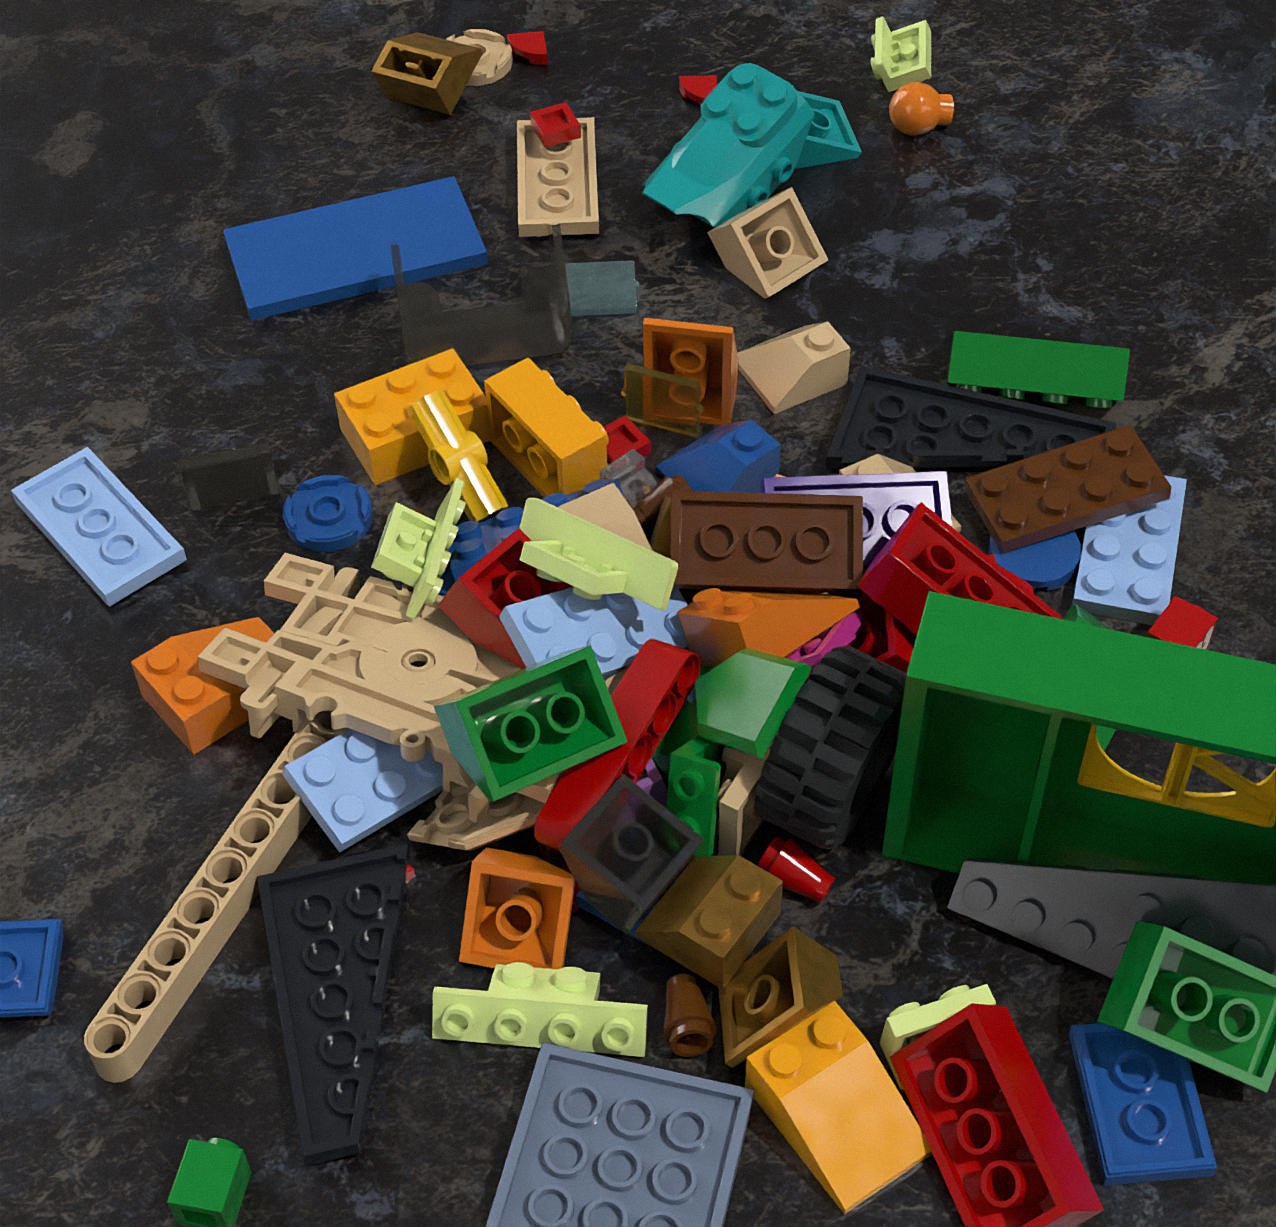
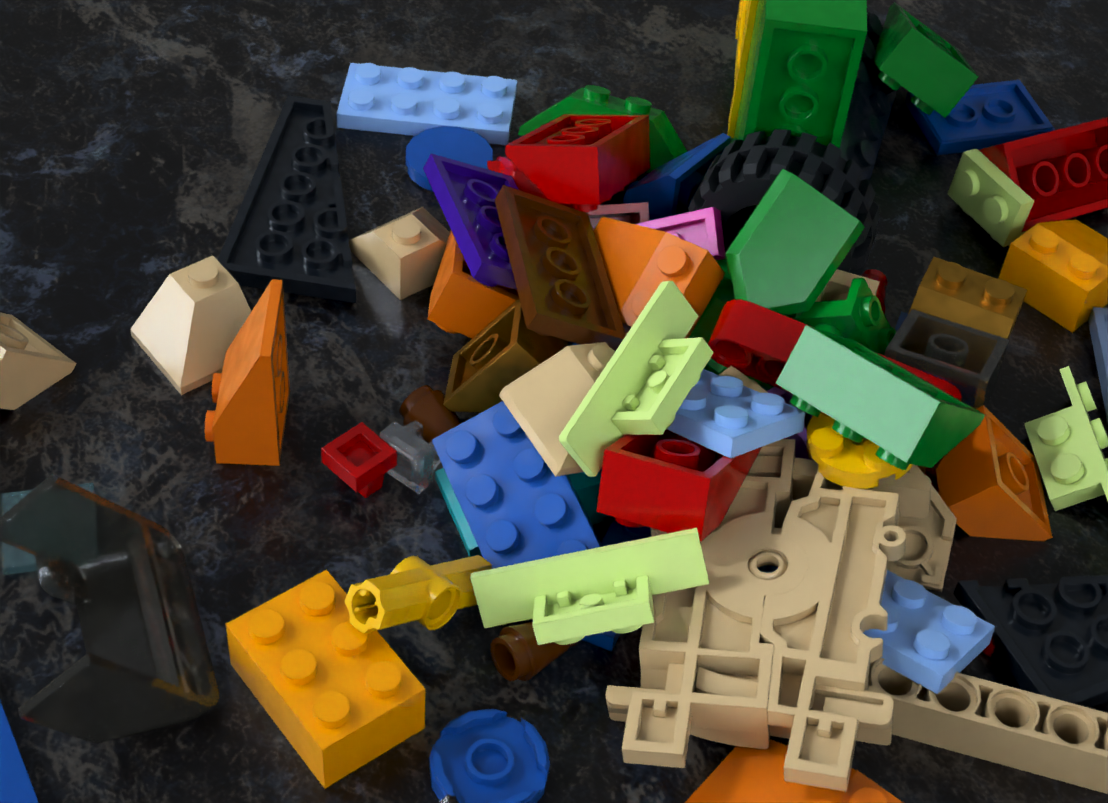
camera: 105 degrees left, 5 degrees down
(543, 430) = (372, 508): light orange brick -> none
(662, 400) = (289, 419): clear yellow piece -> none
(687, 1020) = (1041, 358): reddish brown cone -> none
(726, 459) = (364, 372): blue slope -> none
(776, 992) = (1039, 268): pearl gold slope -> none
(1038, 366) = (203, 147): green slope -> none
(1067, 488) = (382, 120): reddish brown plate -> none
(1184, 625) = (544, 71): red brick -> none

